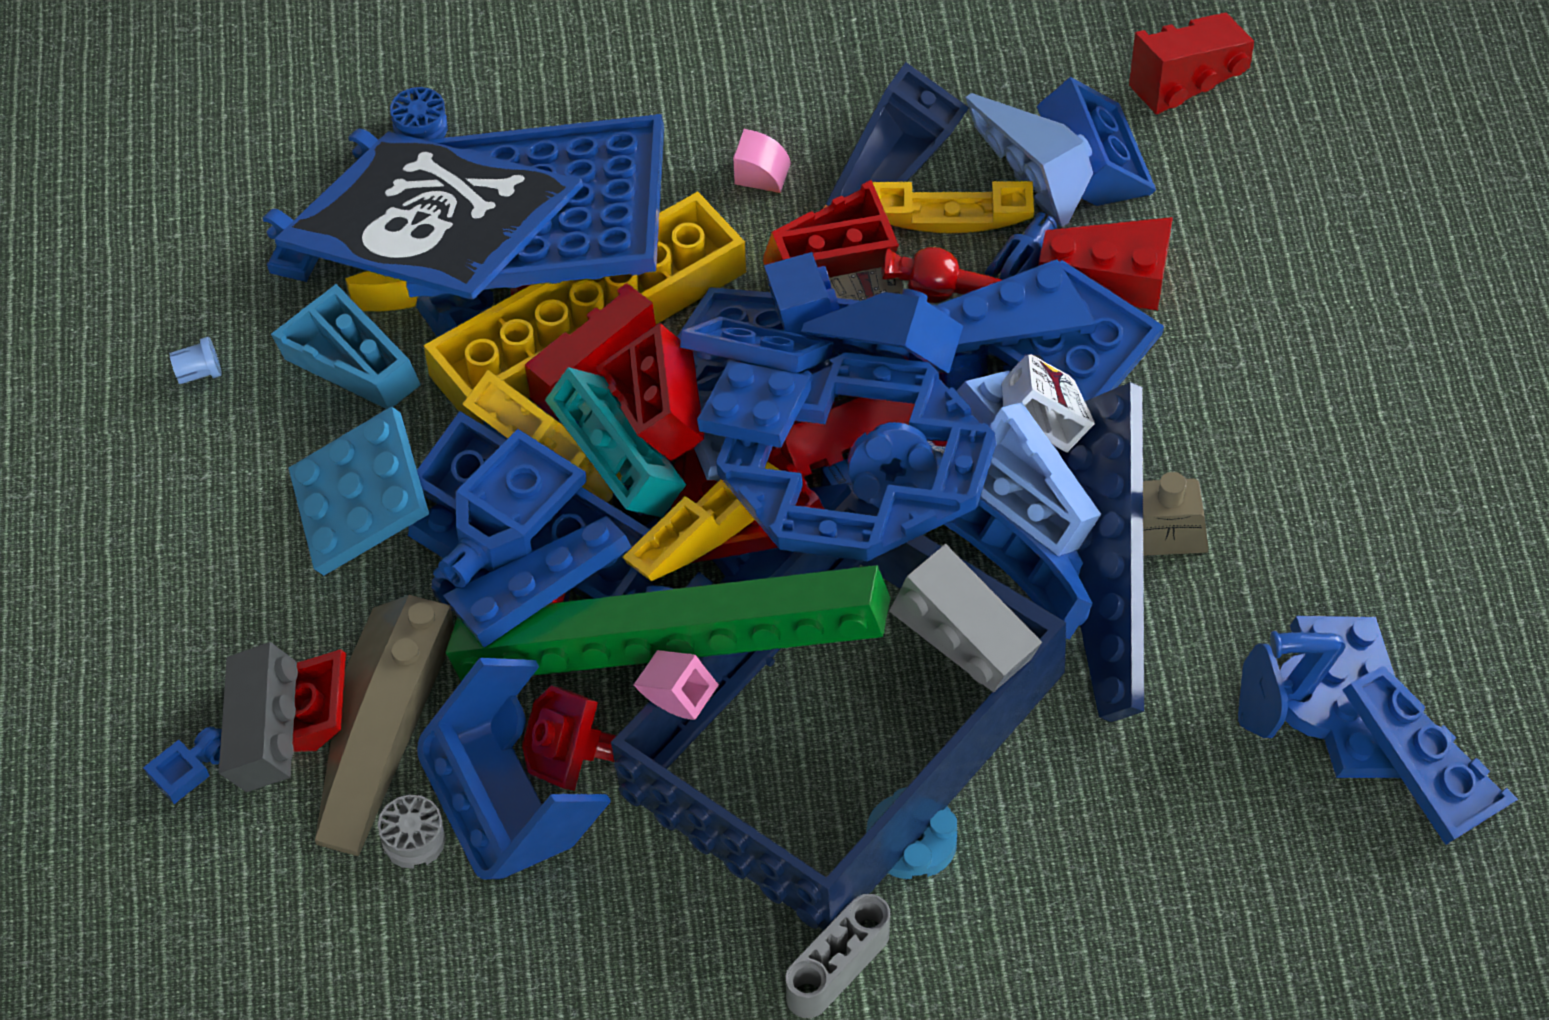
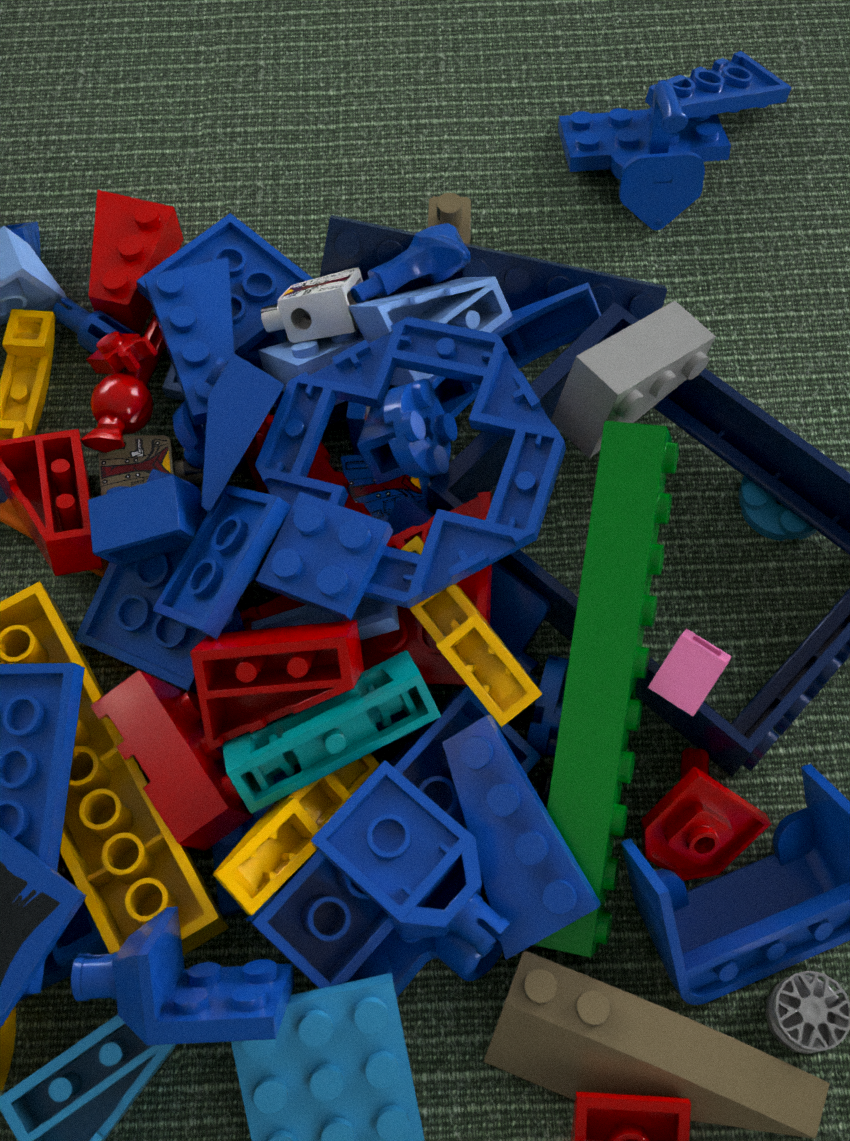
camera: 85 degrees left, 10 degrees up
(404, 369) = (179, 1004): none -> blue plate
(981, 260) = (120, 351): none -> red plate
(1099, 471) = (432, 255): none -> blue animal

